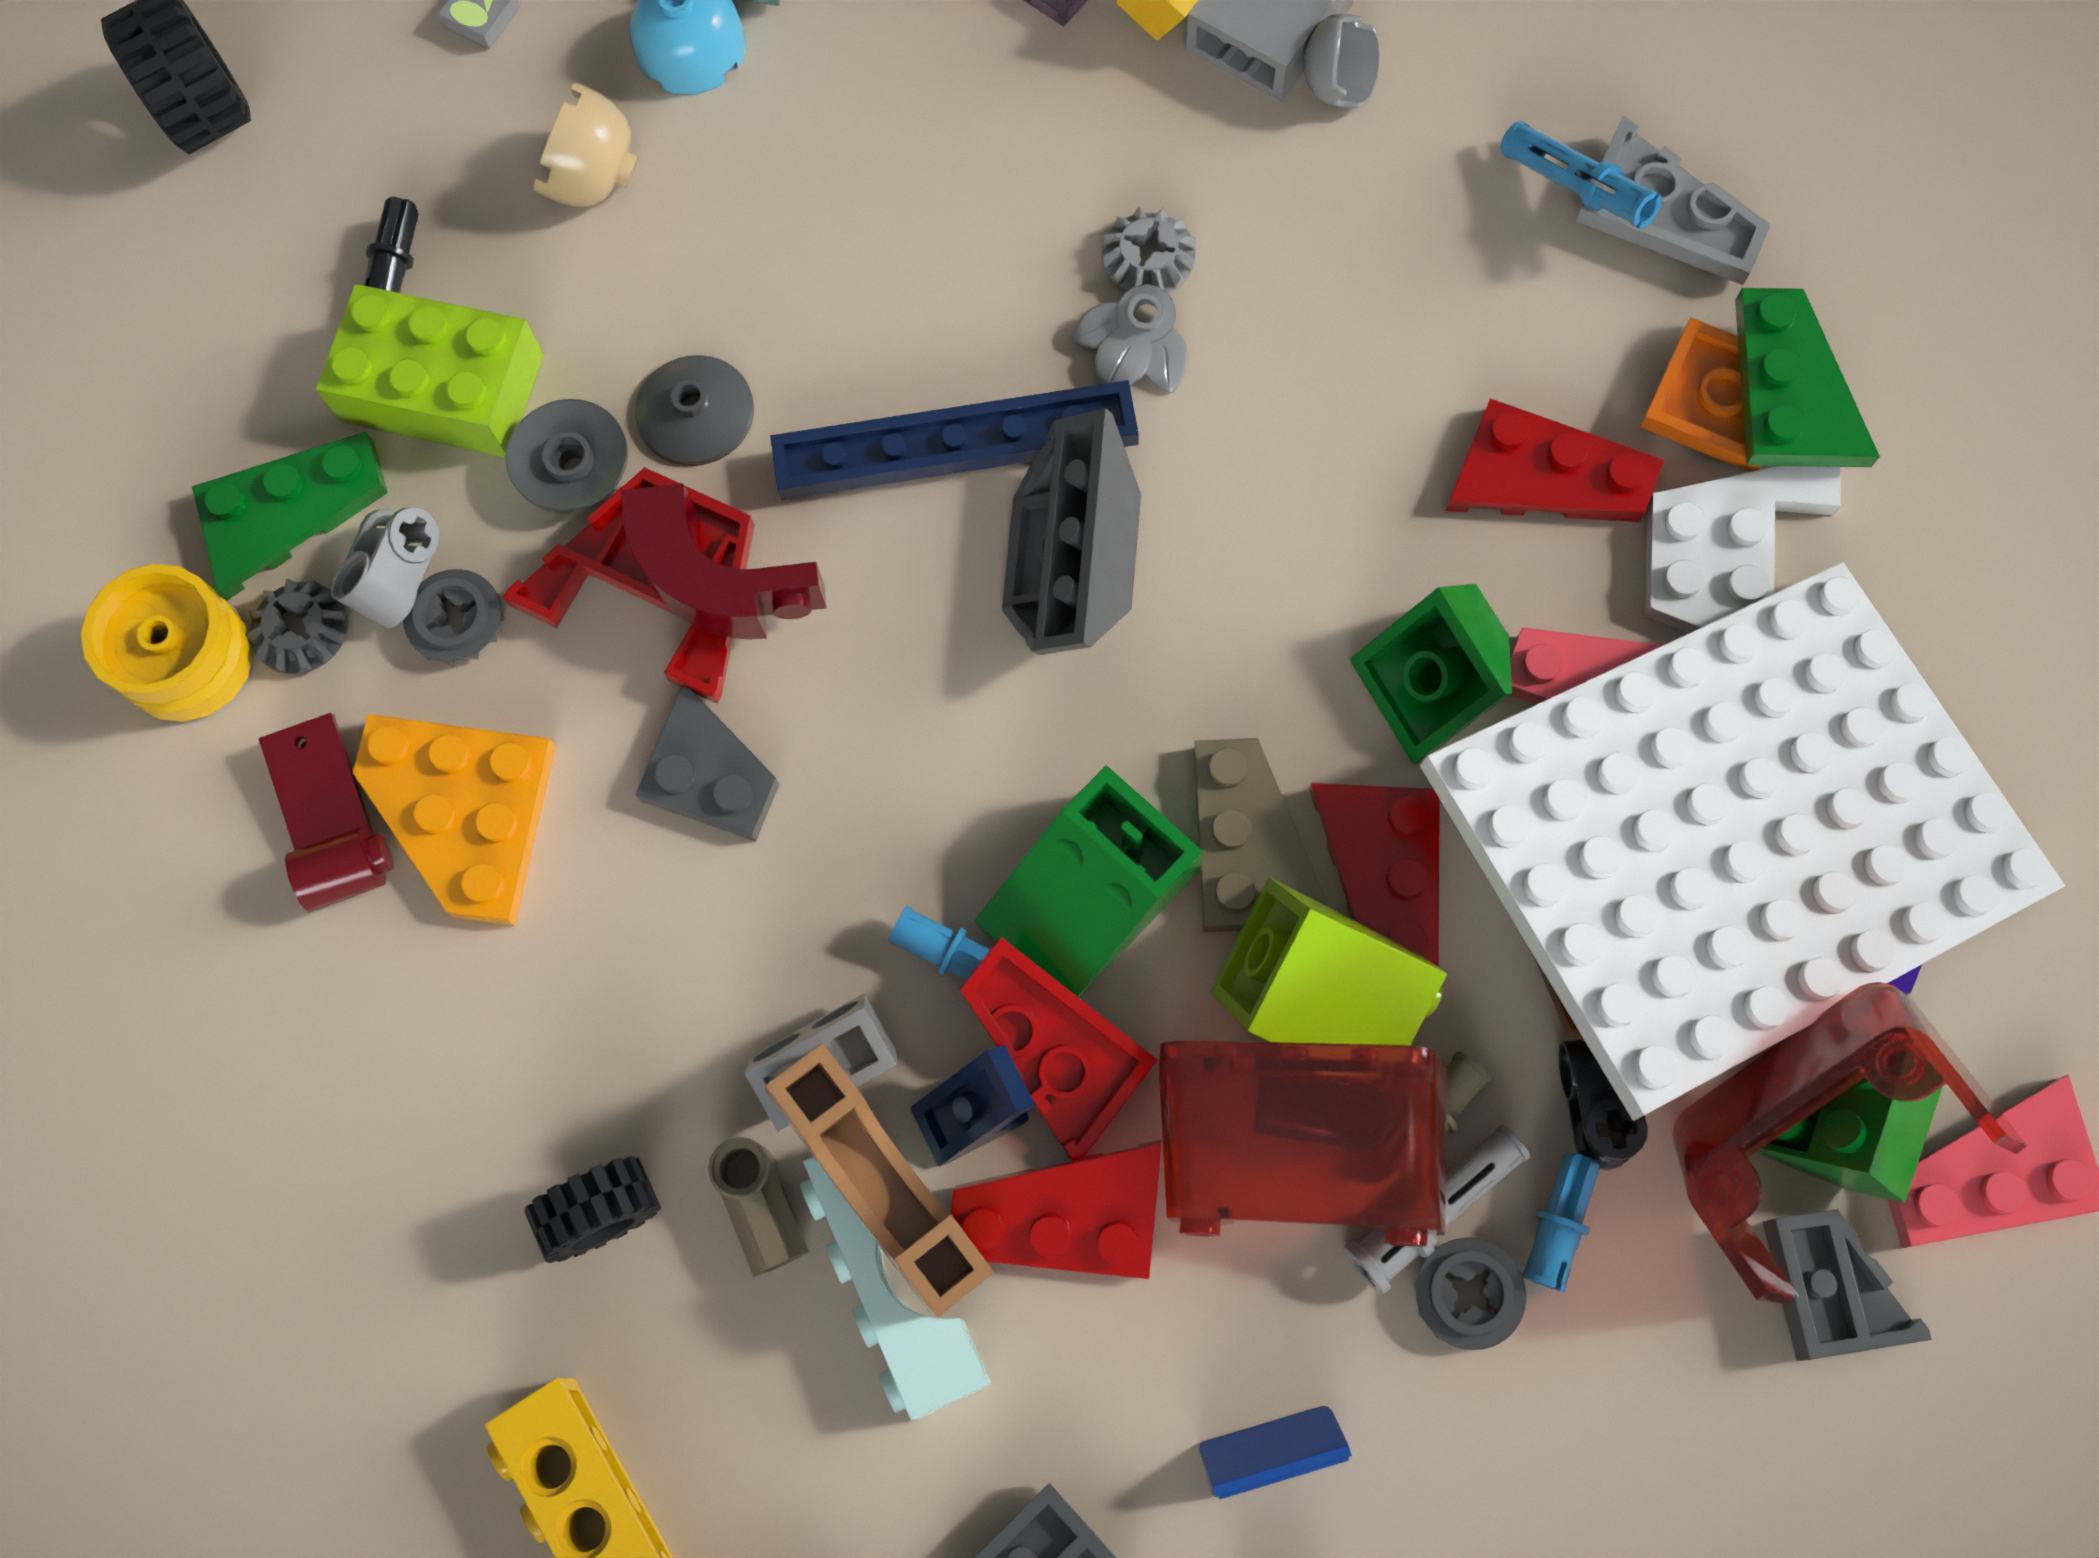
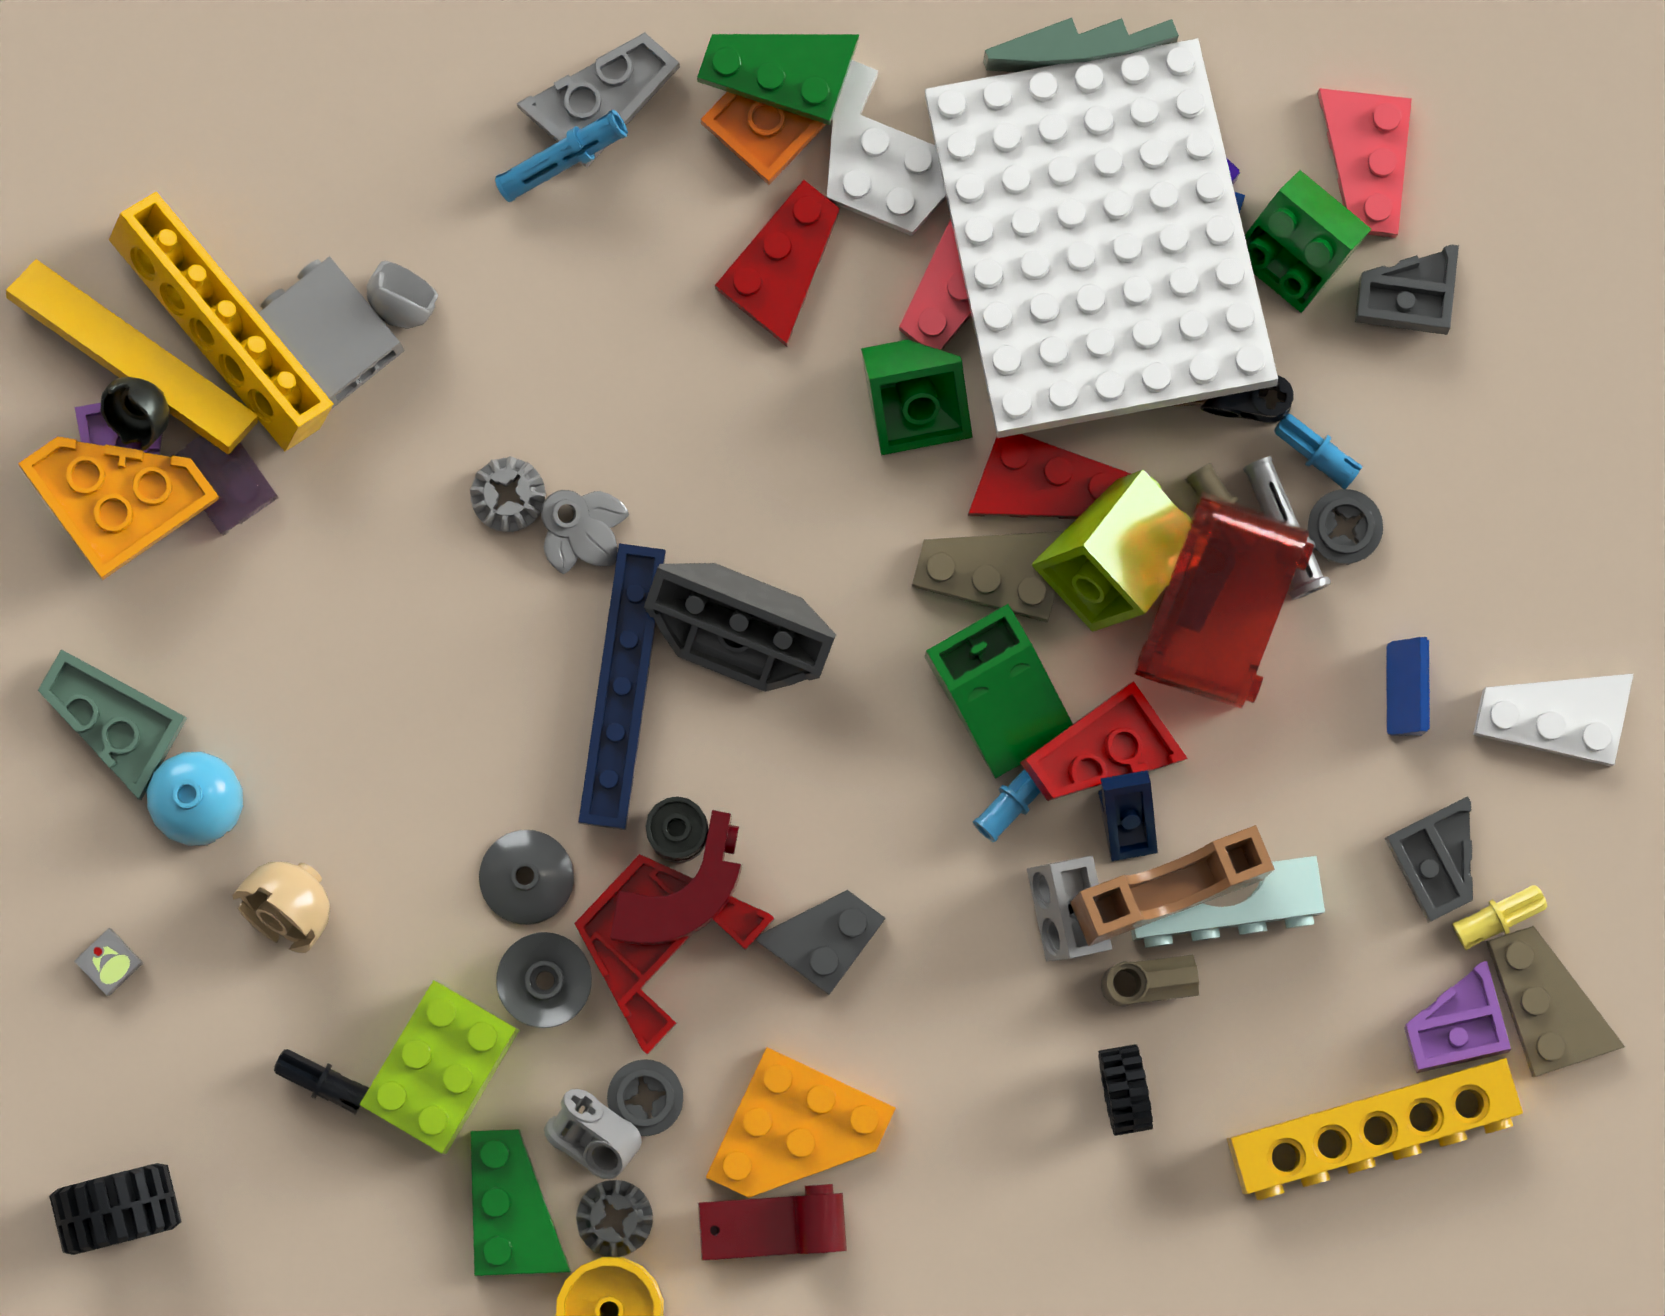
camera: 80 degrees left, 10 degrees up
(788, 532) = (677, 829): none -> pearl dark grey wheel
(1069, 1215) = (1219, 773): red wing -> none
(1865, 1034) = (1270, 217): clear red windscreen -> none
(1978, 713) = (1063, 45): none -> sand green slope

